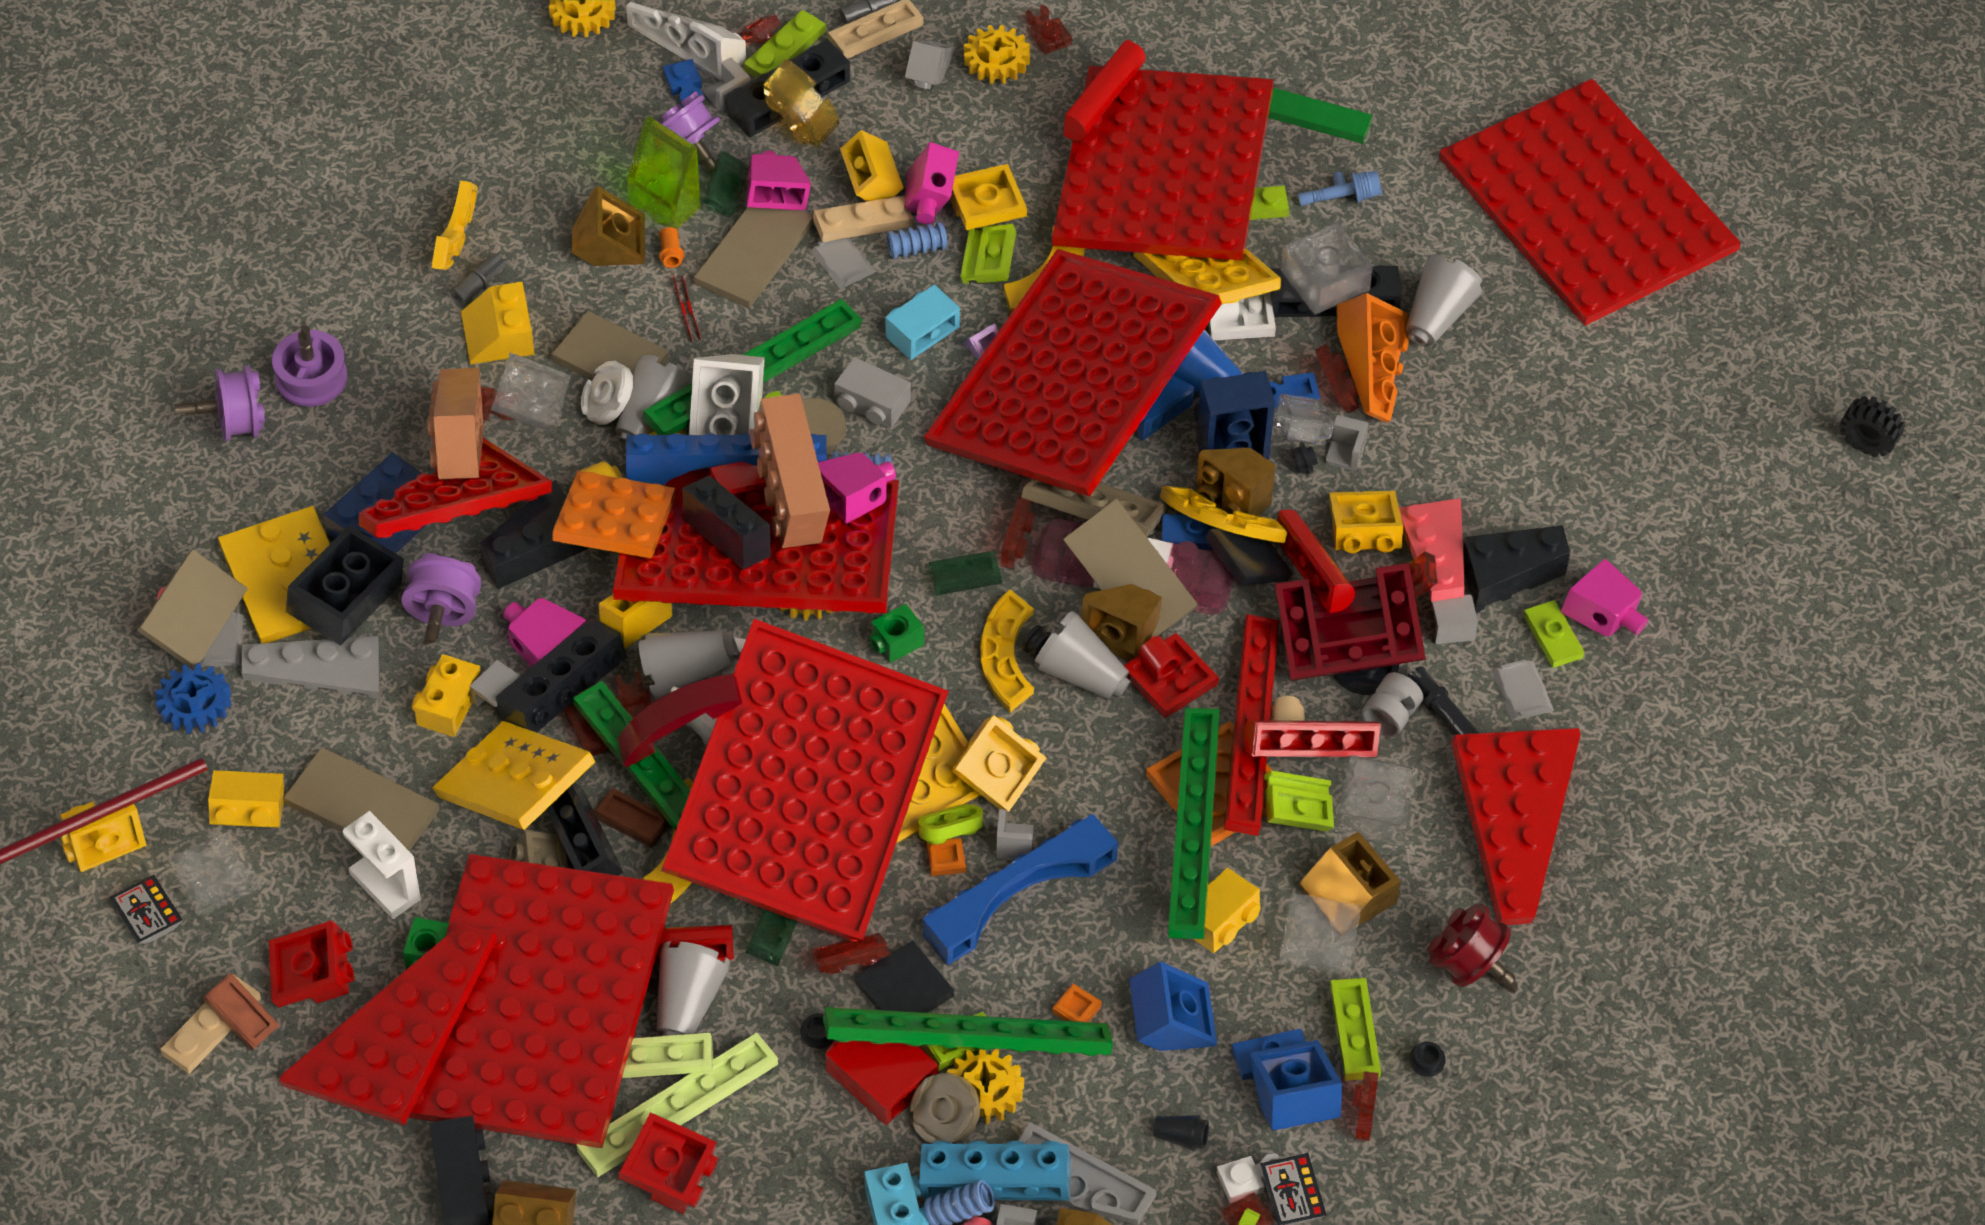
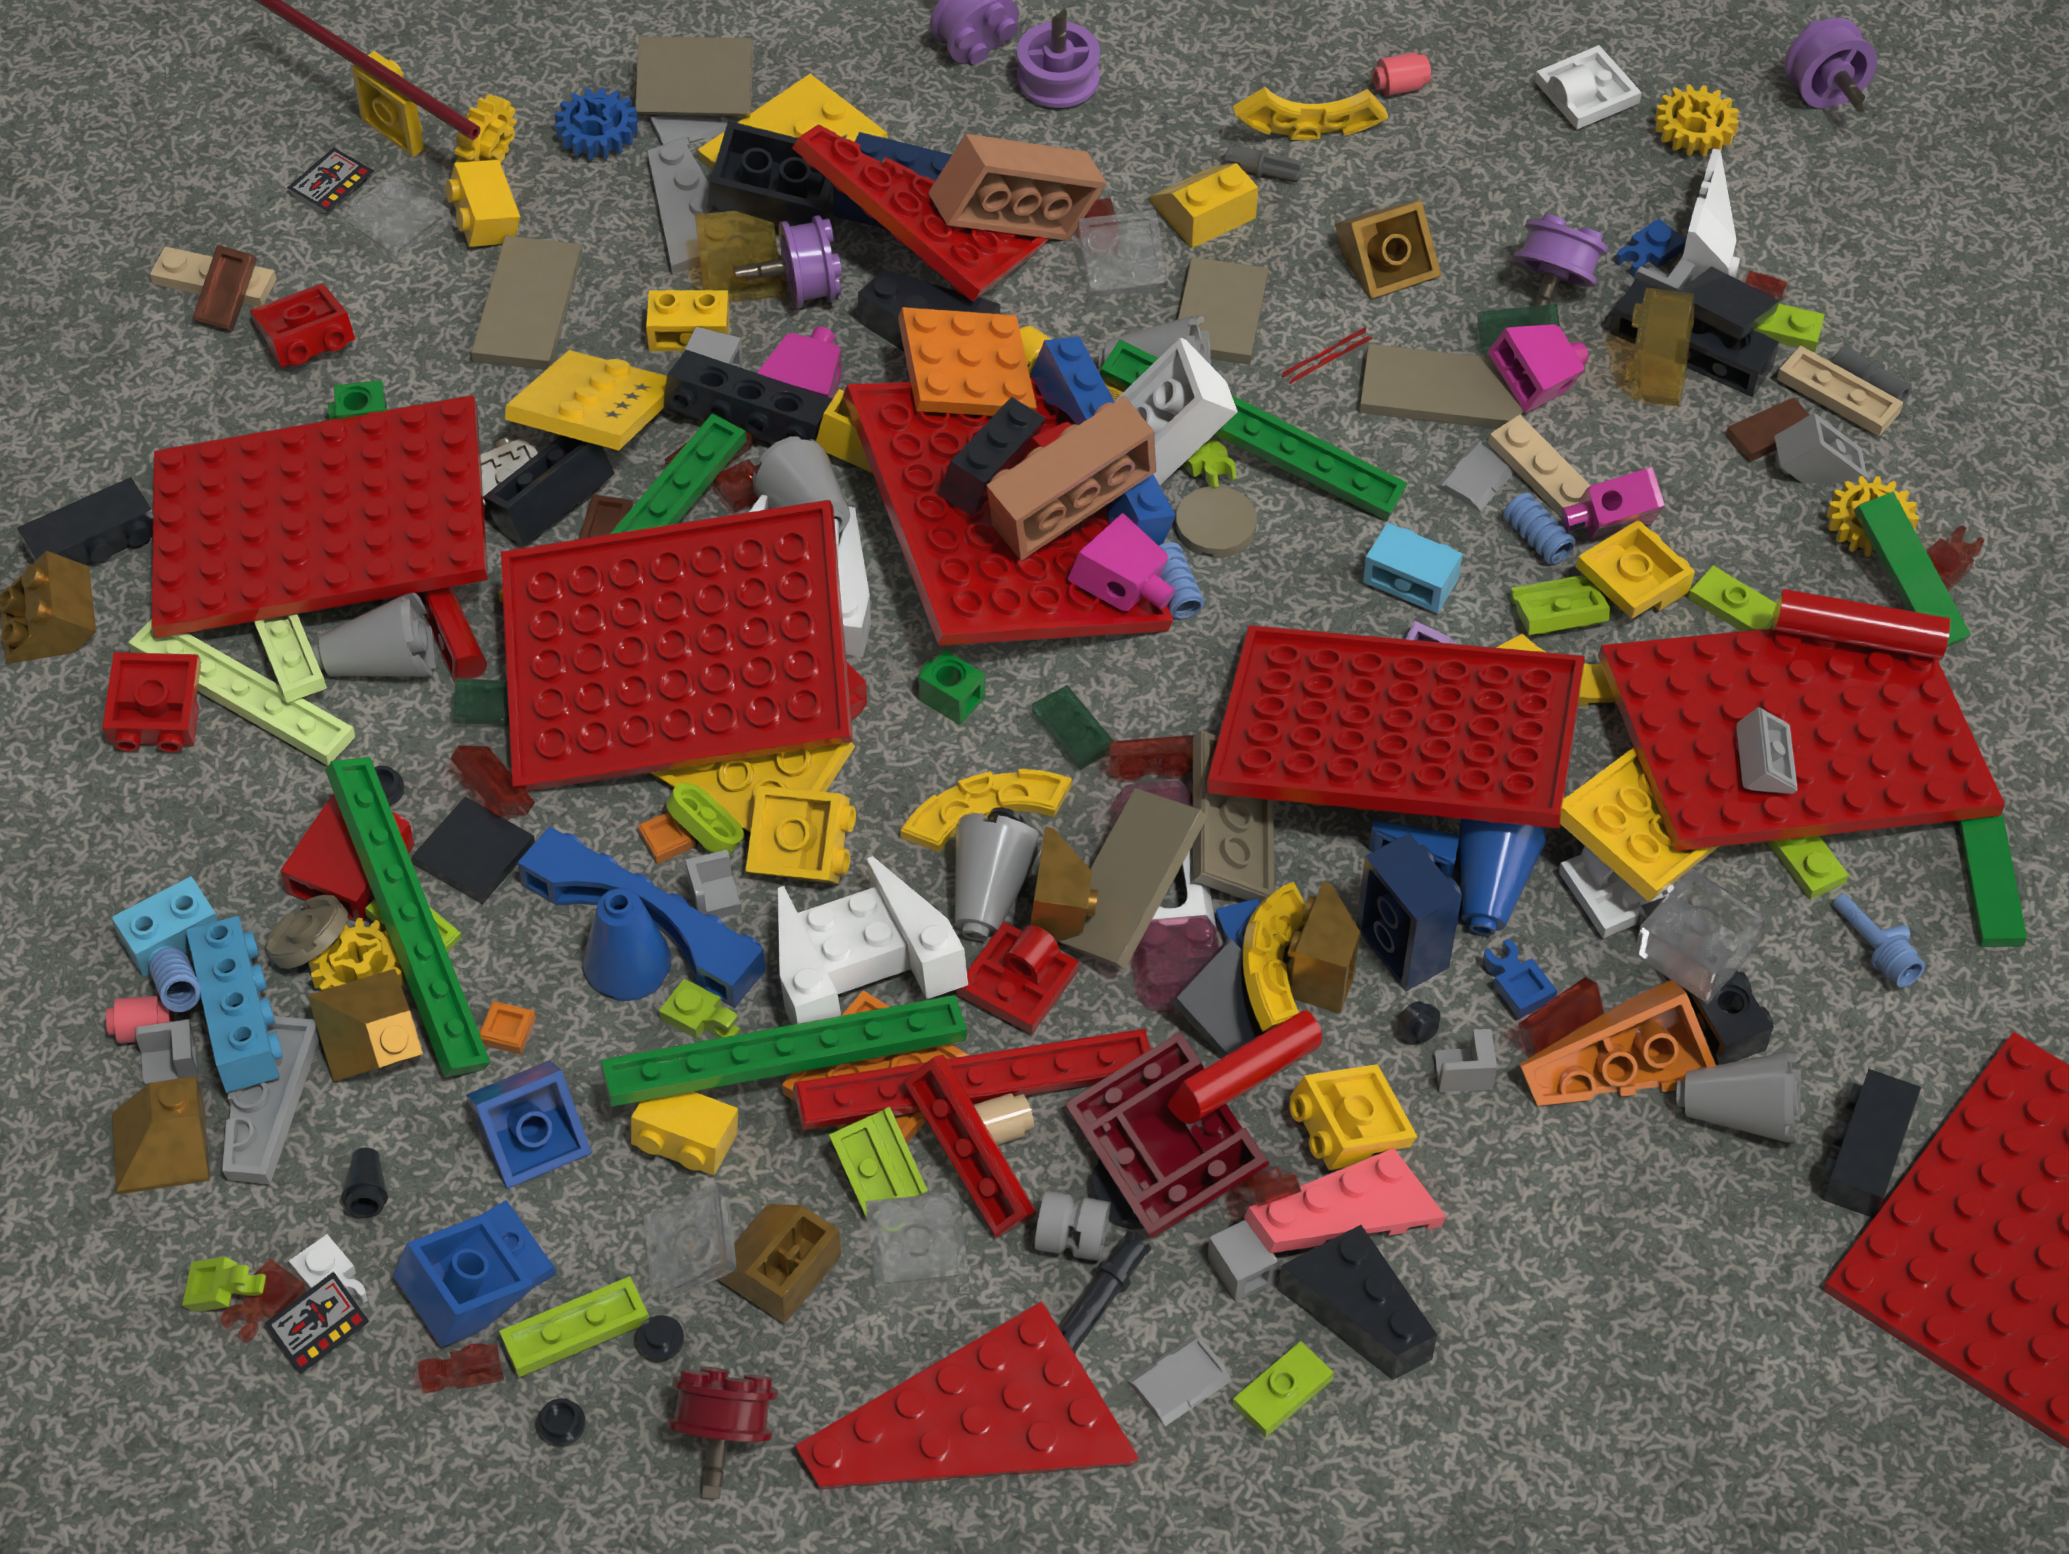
camera: 70 degrees right, 0 degrees up
(171, 757) = (496, 131): none -> yellow gear
(386, 867) = (437, 326): white panel -> none
(393, 1042) = (221, 413): red wing -> none
(399, 647) = (733, 241): none -> clear yellow slope
(437, 161) = (1401, 73): none -> coral brick
(511, 58) = (1588, 87): none -> white plate
(607, 393) = (1151, 314): white tile -> none
(664, 175) = (1473, 261): clear neon green slope -> none
(671, 253) = (1392, 312): orange pin -> none
(673, 711) = (708, 494): dark red slope -> none
(771, 51) = (1729, 303): none -> black tile
(871, 167) = (1615, 446): yellow brick -> none
(872, 393) = (1286, 555): light grey brick -> none
(888, 80) = (1756, 433): none -> copper tile
(1032, 157) = (1732, 601): none -> lime plate
(1049, 905) = (625, 948): none -> blue cone
(1054, 1086) = (364, 1024): none -> pearl gold slope
(1055, 48) = (1908, 562): none -> green tile
(1105, 756) = (864, 942): none -> white wedge
(1113, 882) = (696, 1010): none -> lime plate
(1192, 179) = (1766, 753): none -> light grey slope
(1303, 420) = (1465, 995): clear brick -> none
(1382, 979) = (660, 1338): none -> black plate
(1496, 254) = (1869, 1143): none -> black brick
(1605, 601) = (1351, 1428): dark pink torso -> none

